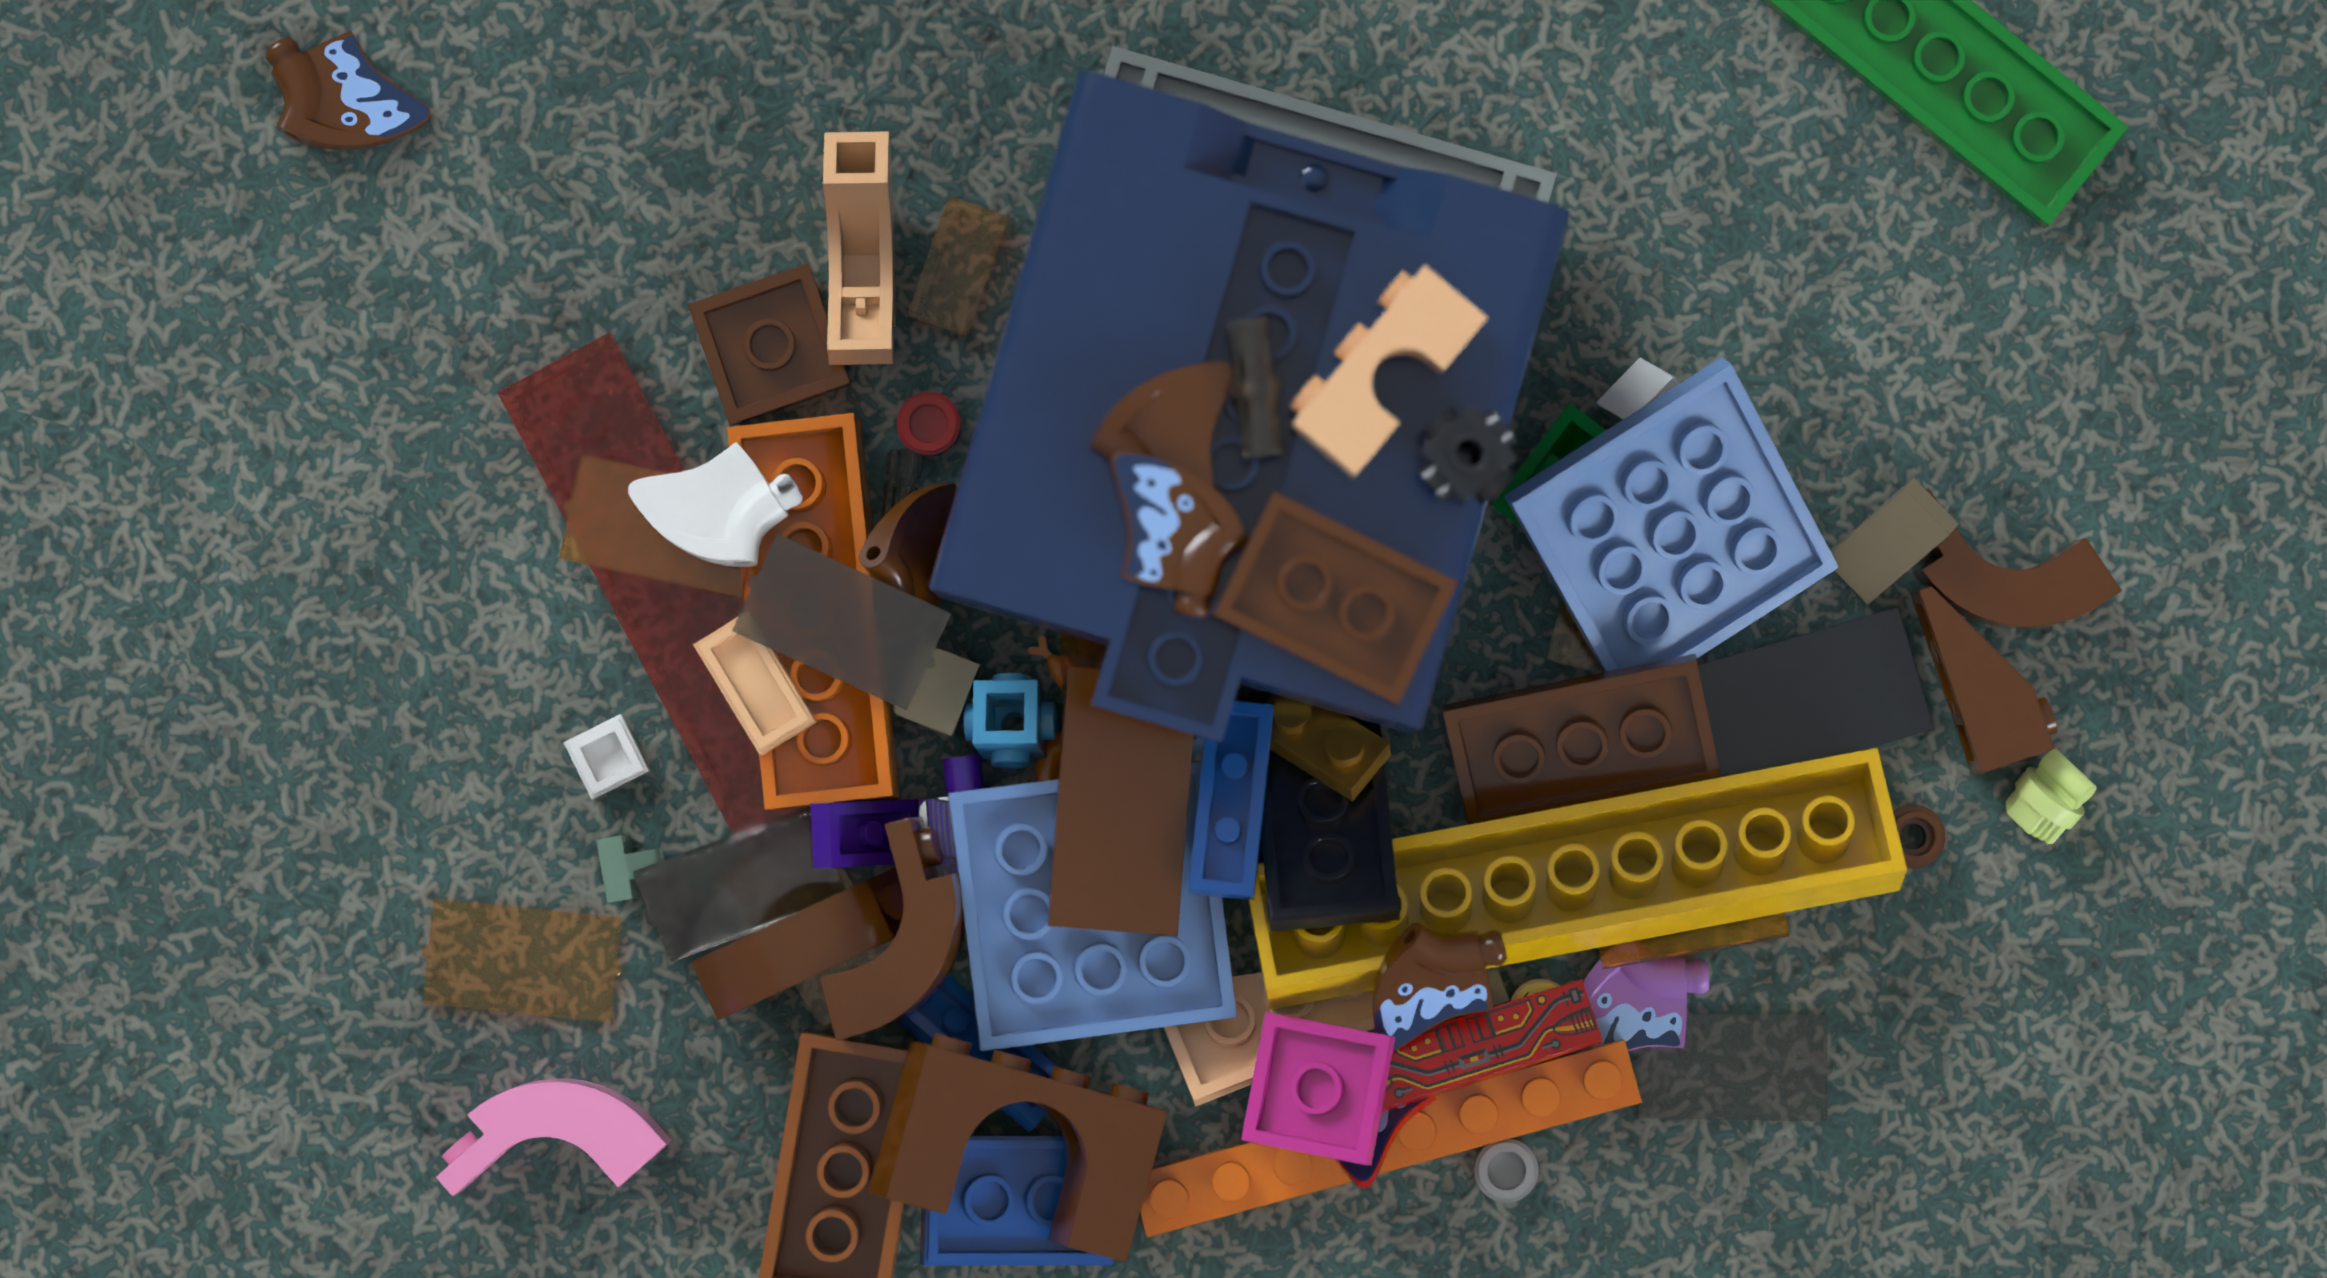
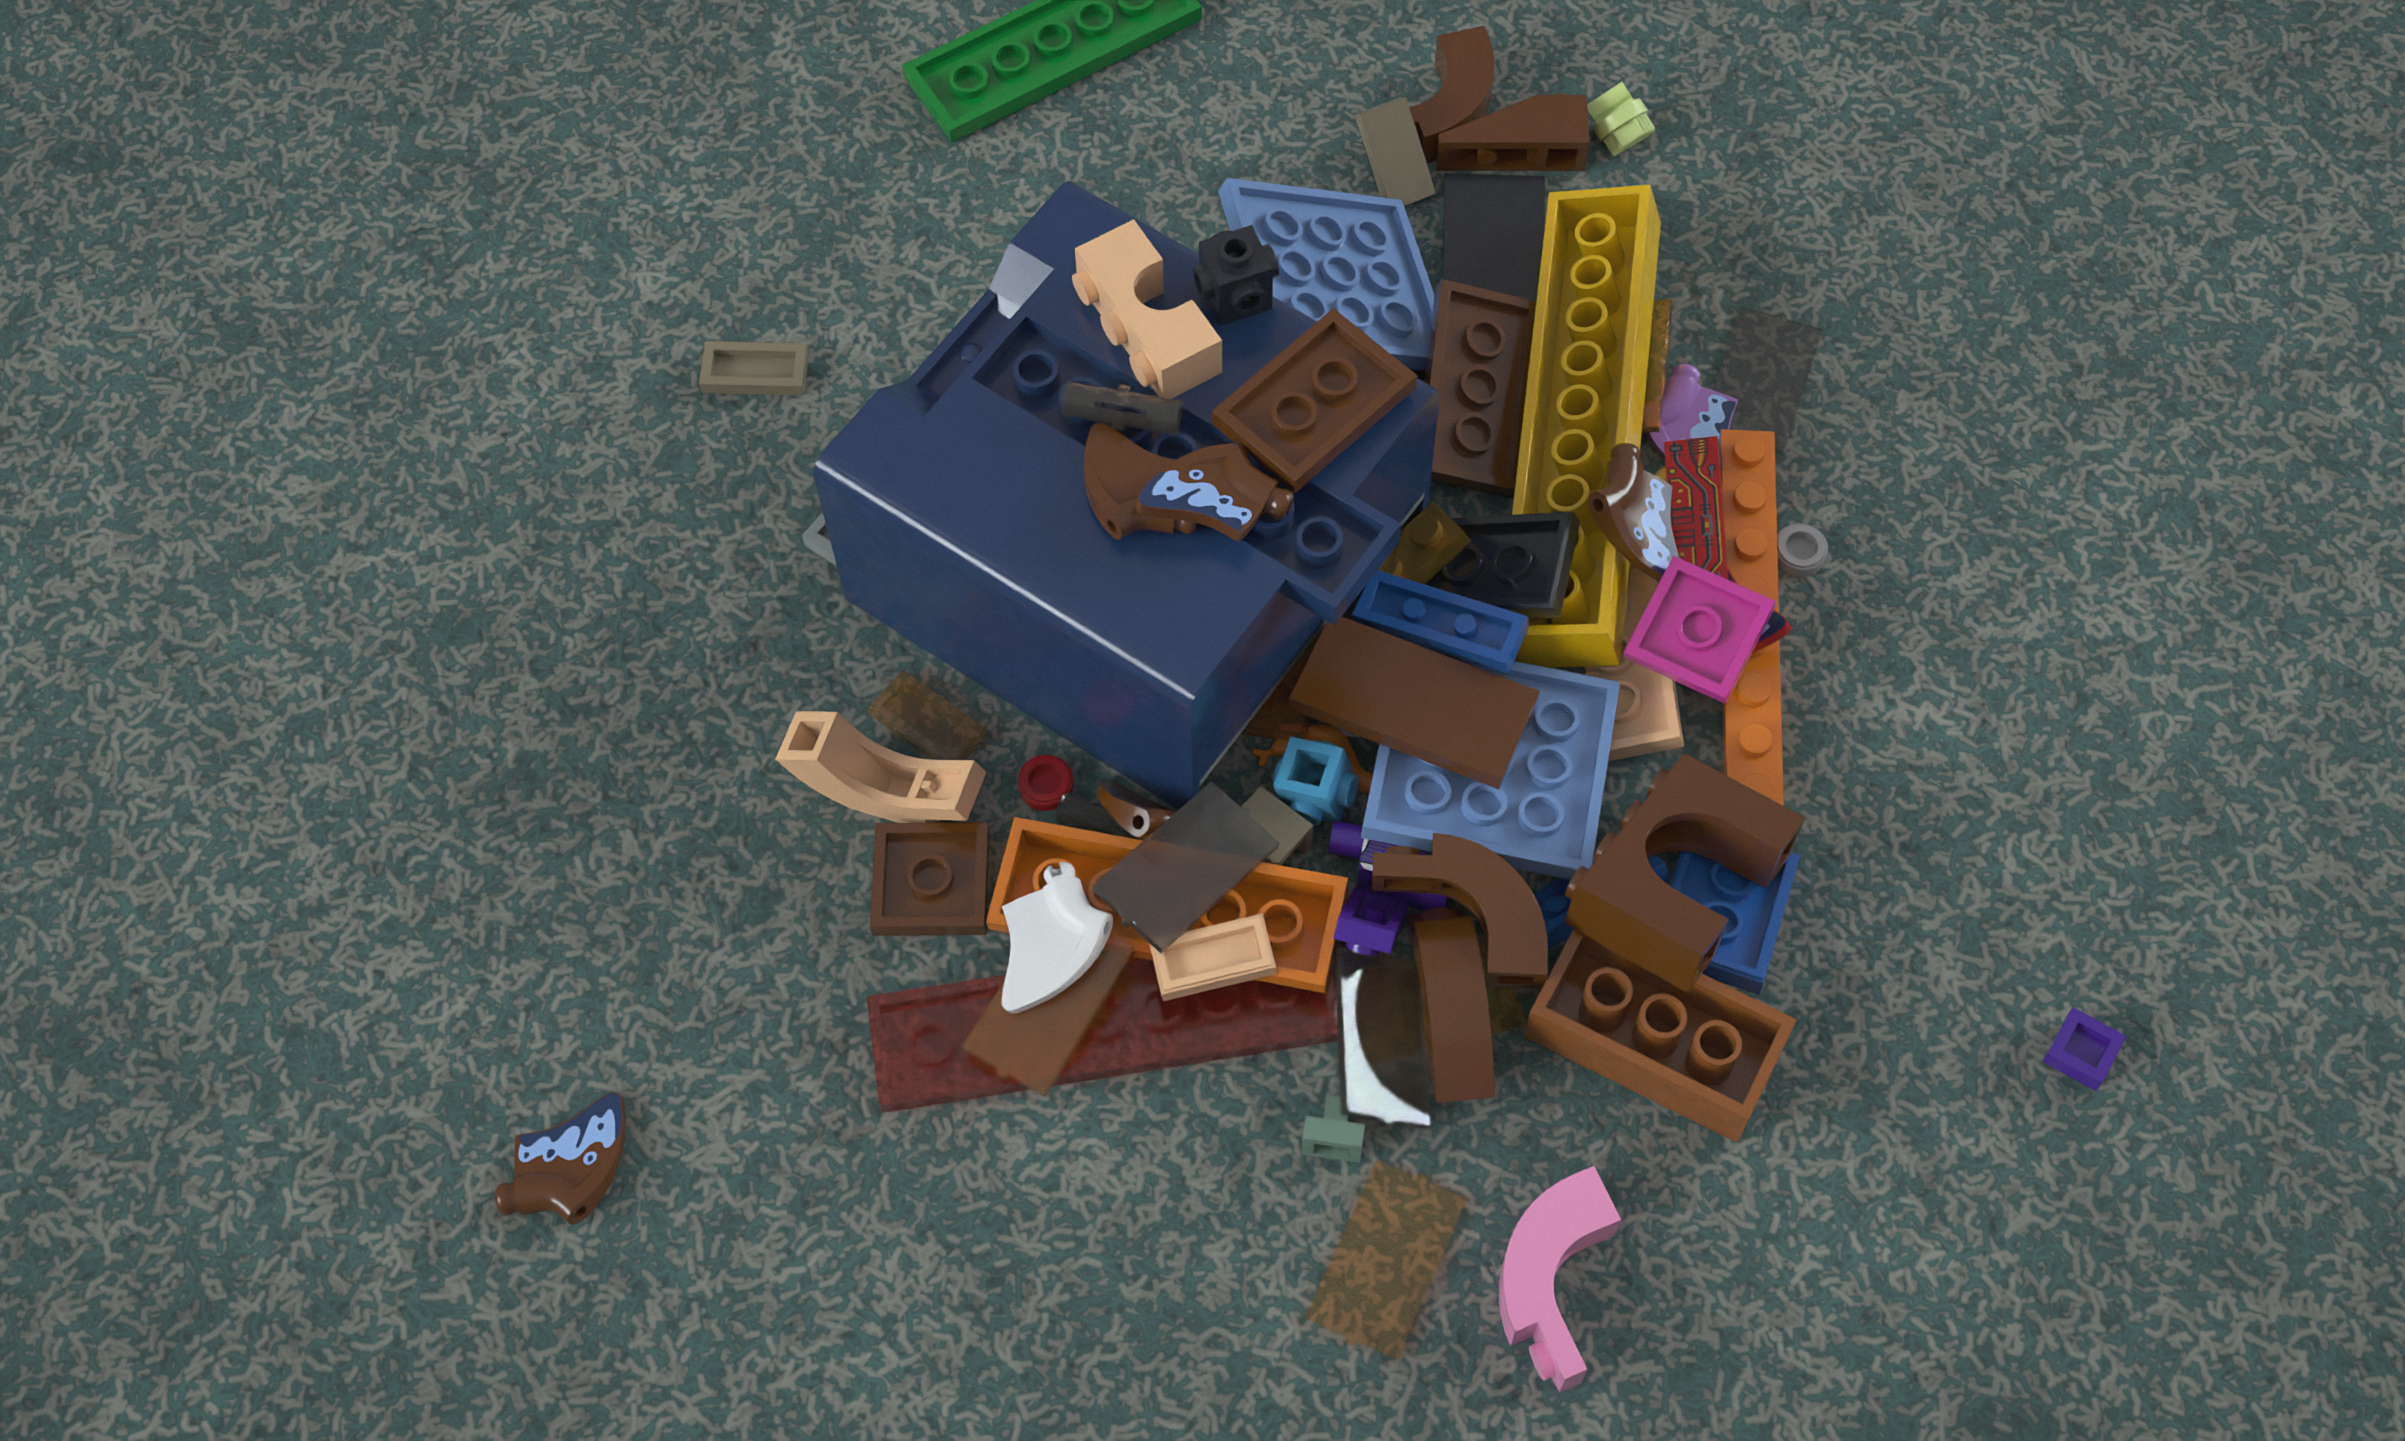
camera: 65 degrees left, 25 degrees down
(606, 756) = (1230, 1125): white tile -> none

